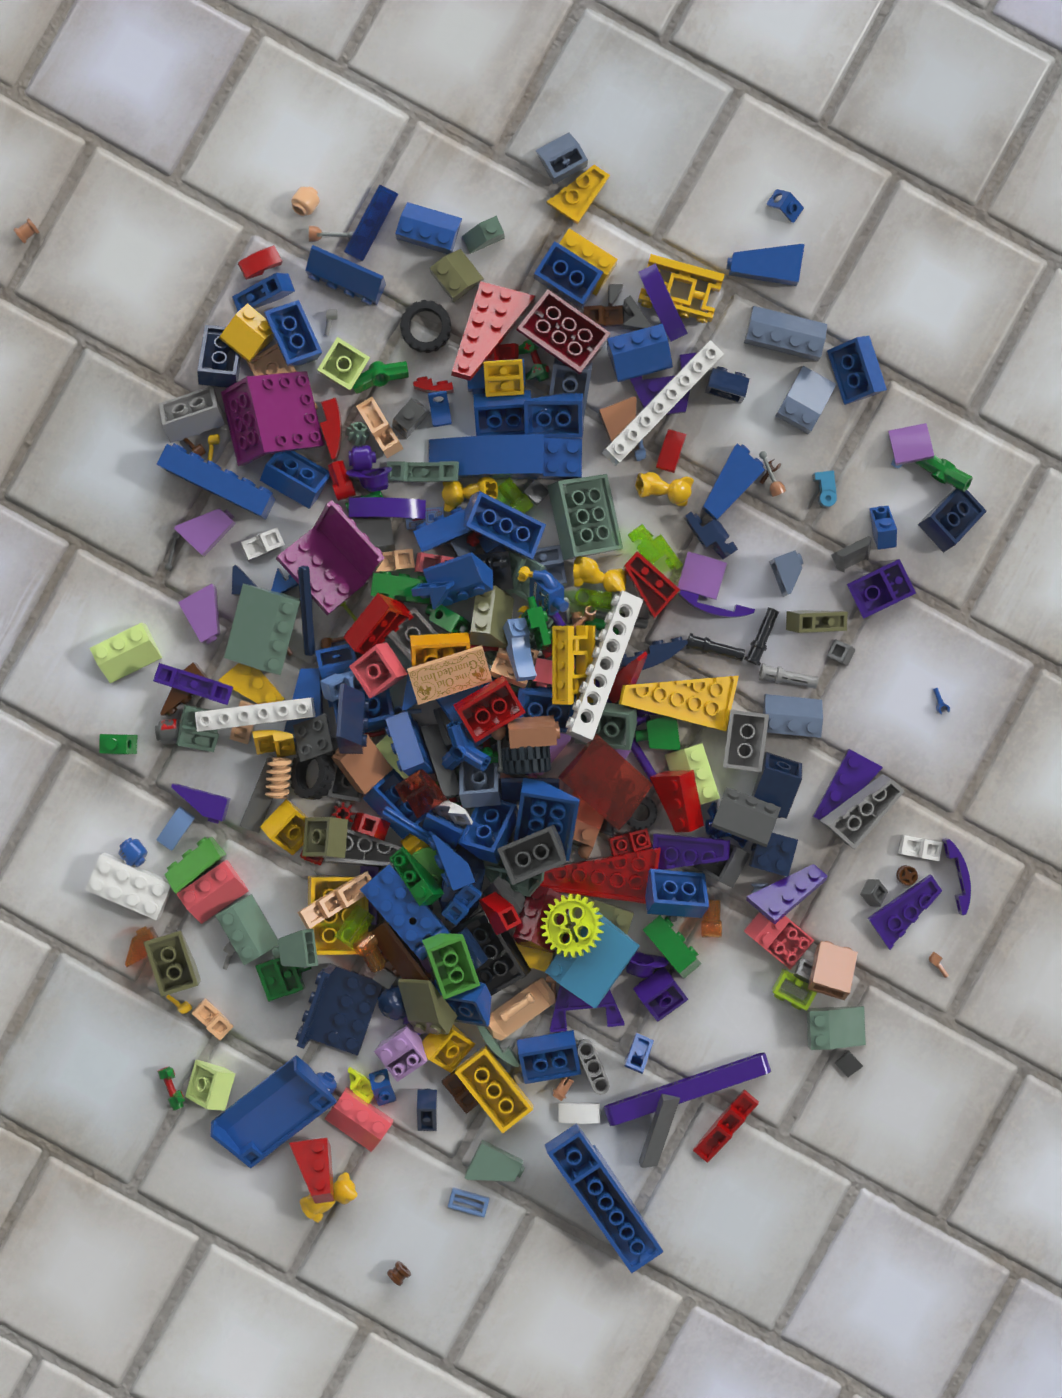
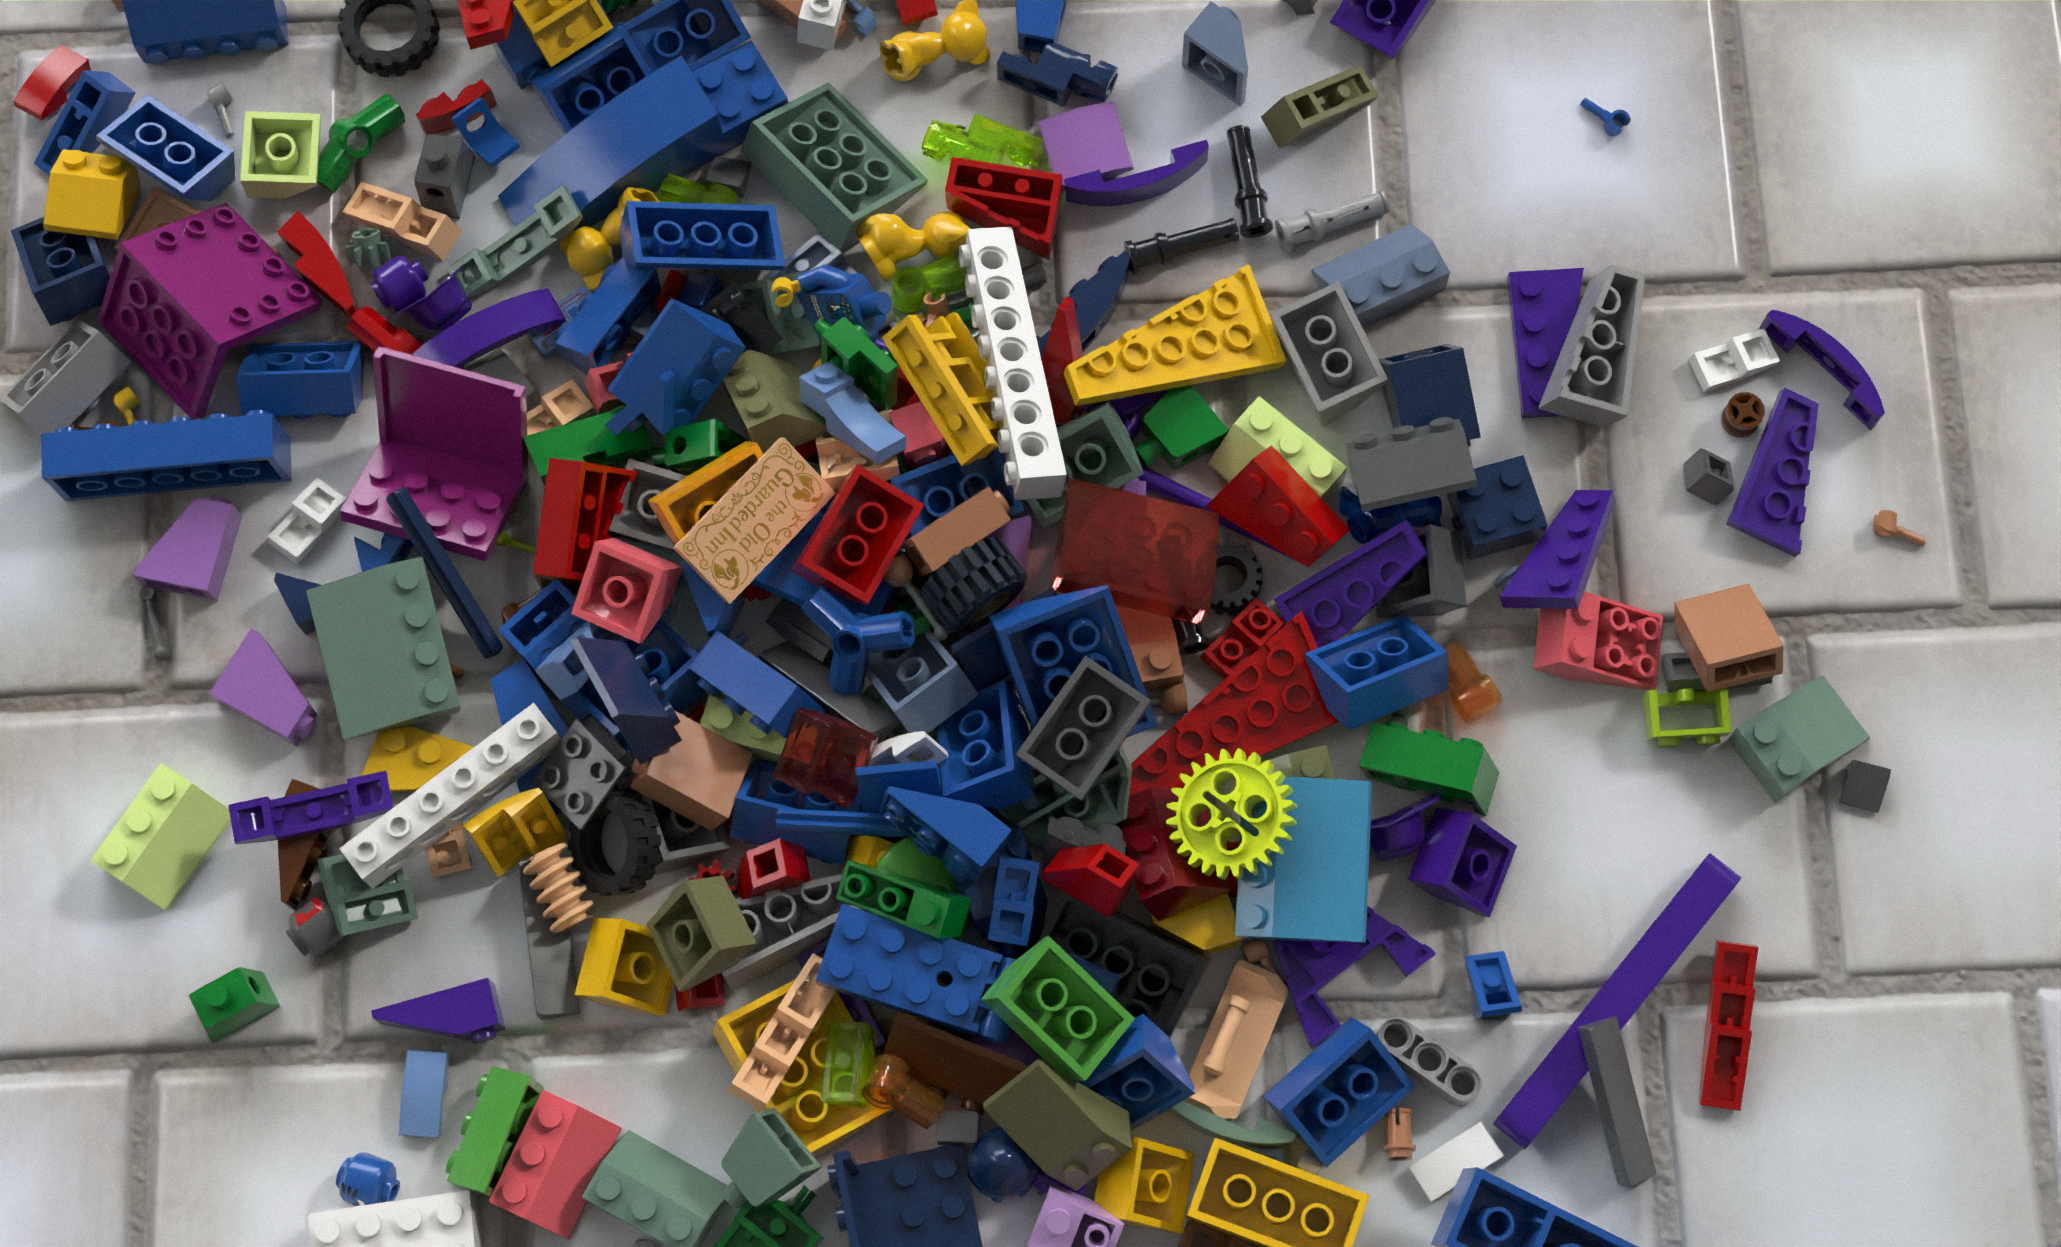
camera: 25 degrees left, 15 degrees down
(841, 652) = (1393, 133): dark grey slope -> none

